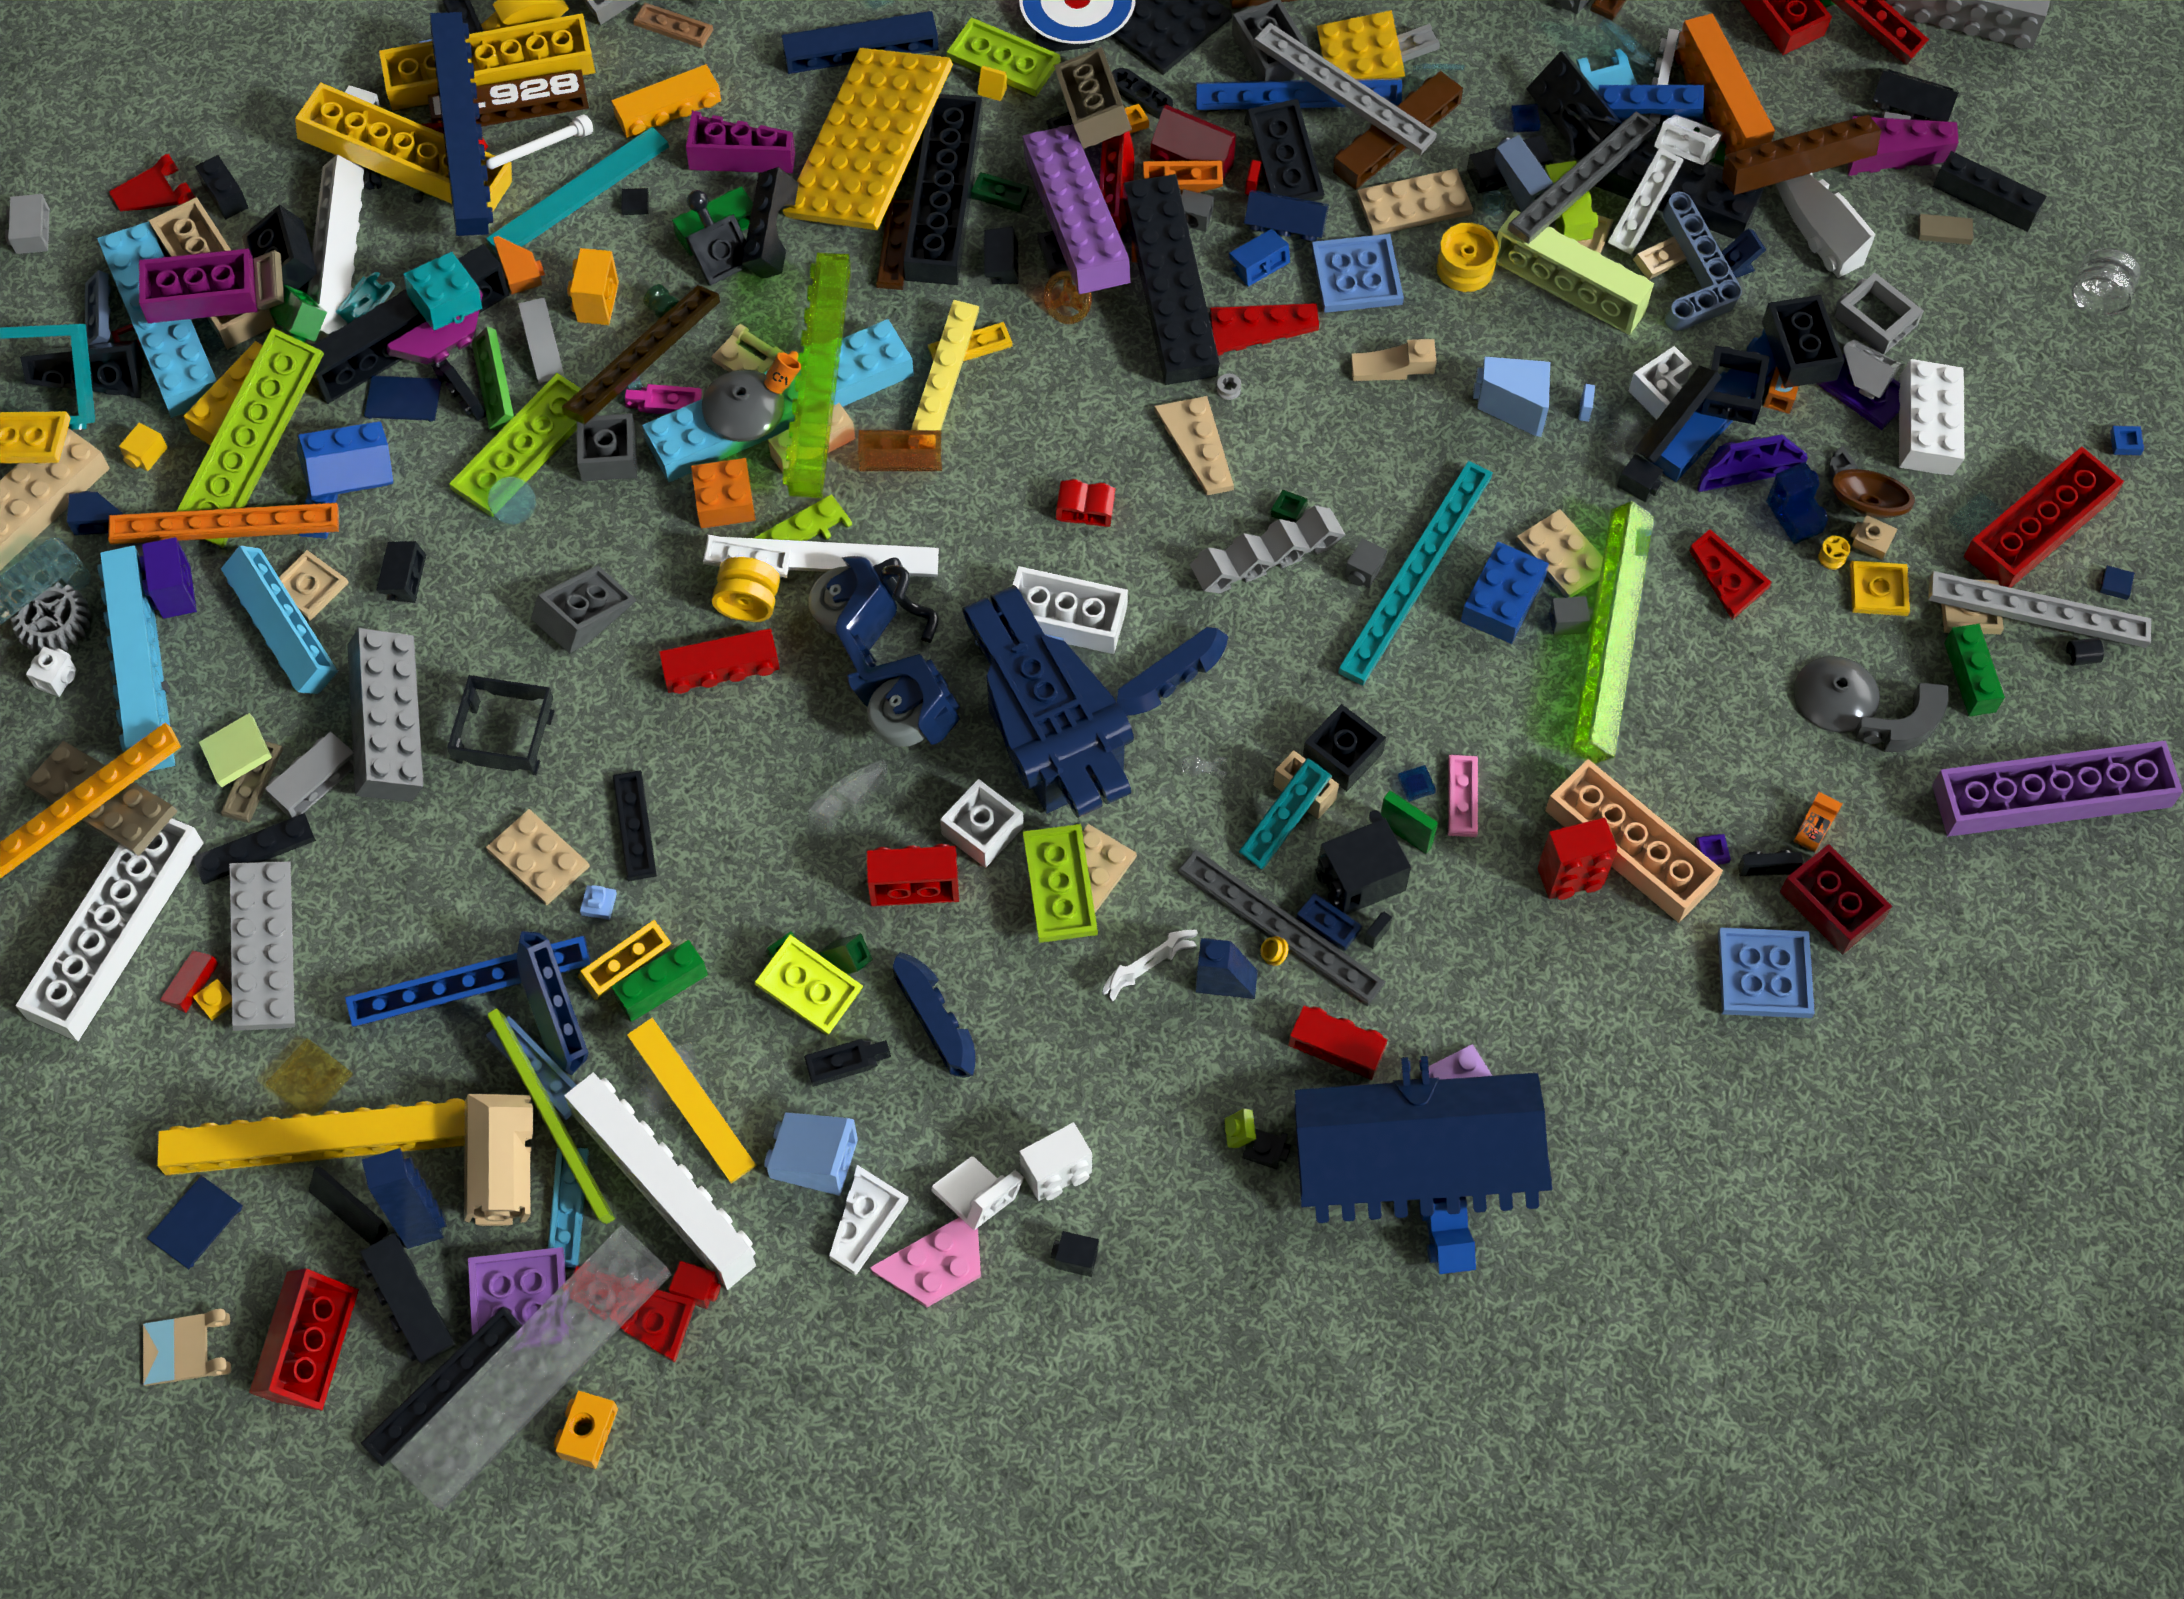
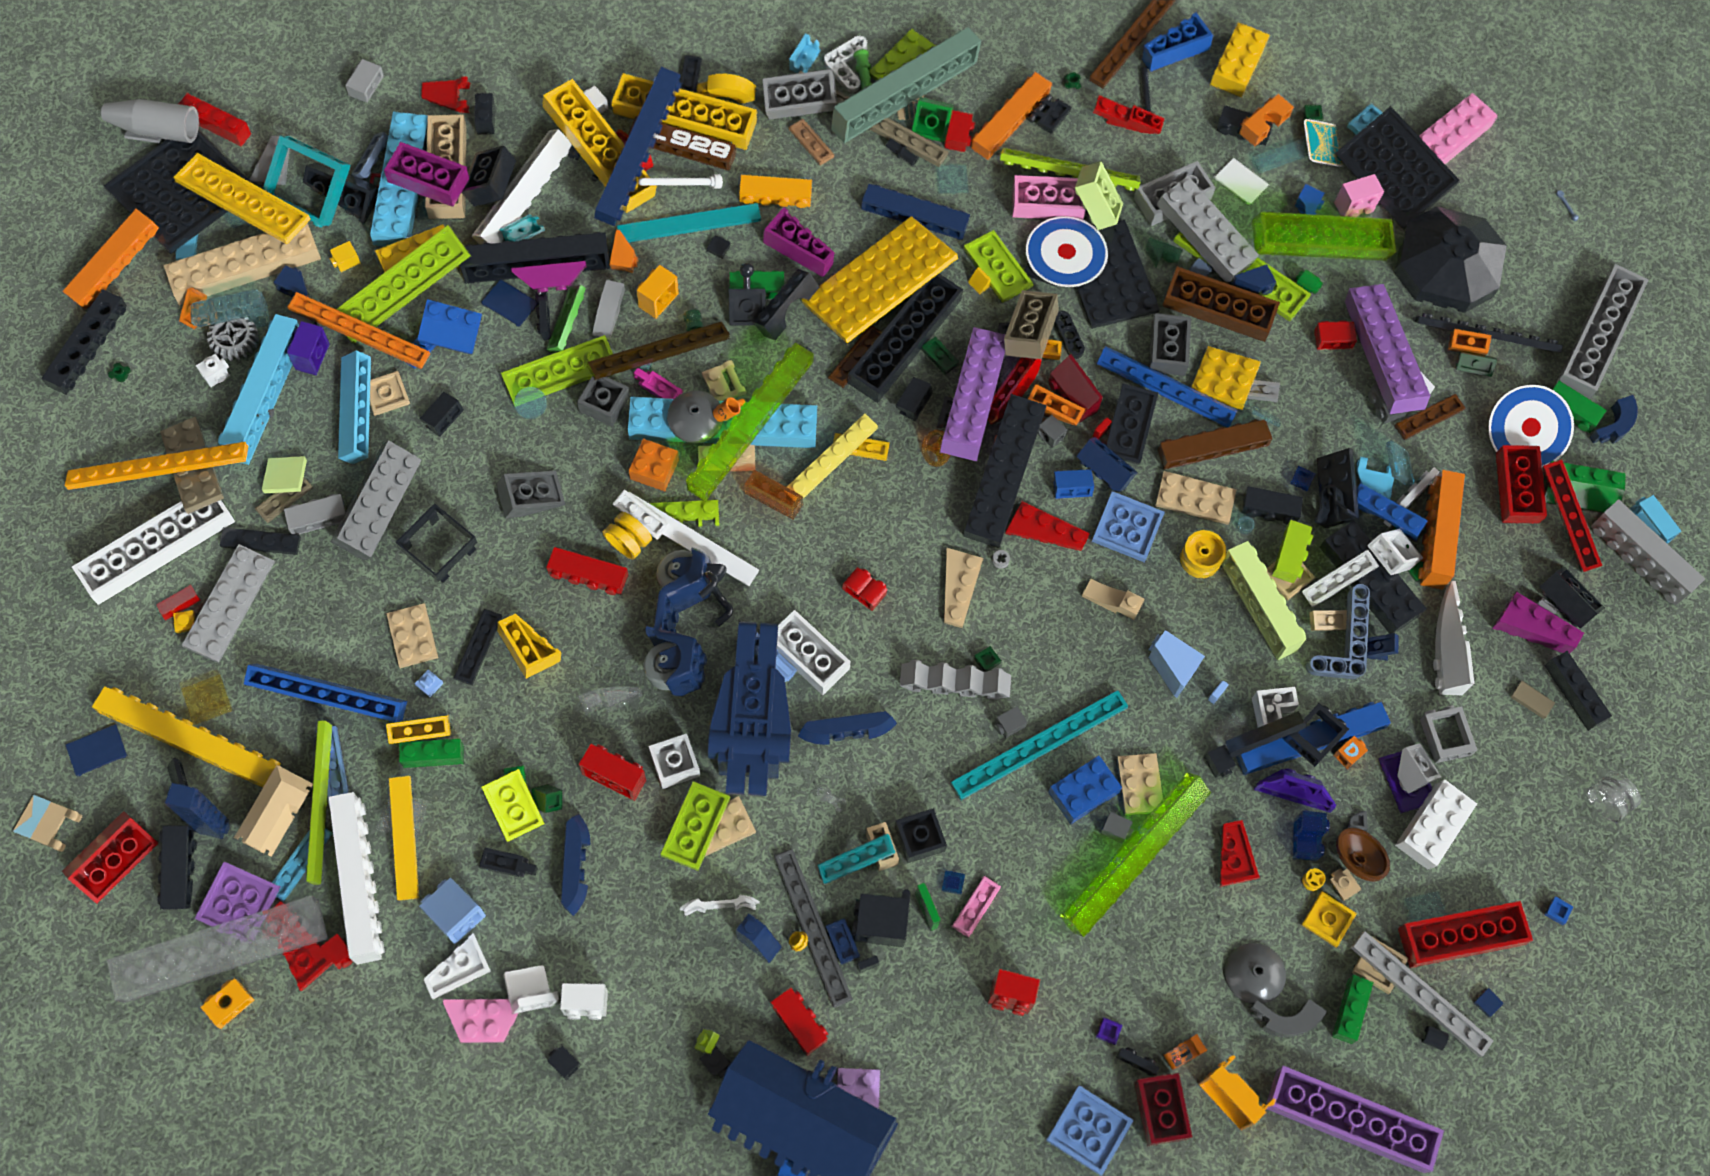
camera: 25 degrees right, 5 degrees up
(268, 280) = (469, 191): dark tan tile -> none
(299, 314) = (475, 220): green brick -> none
(440, 1388) = (165, 930): black tile -> none
(443, 291) = (560, 252): teal brick -> none
(550, 1002) = (359, 732): brick -> none
(700, 788) = (527, 647): none -> yellow wedge
(1345, 89) = (1193, 402): light grey plate -> none
(1521, 171) = (1271, 519): sand blue slope -> none
(1581, 177) = (1306, 542): dark grey tile -> none
(1648, 849) = (1060, 998): light nougat brick -> none
(1801, 154) = (1460, 602): reddish brown brick -> none
(1802, 341) = (1379, 730): black brick -> none
(1915, 817) = (1234, 1096): none -> light orange piece

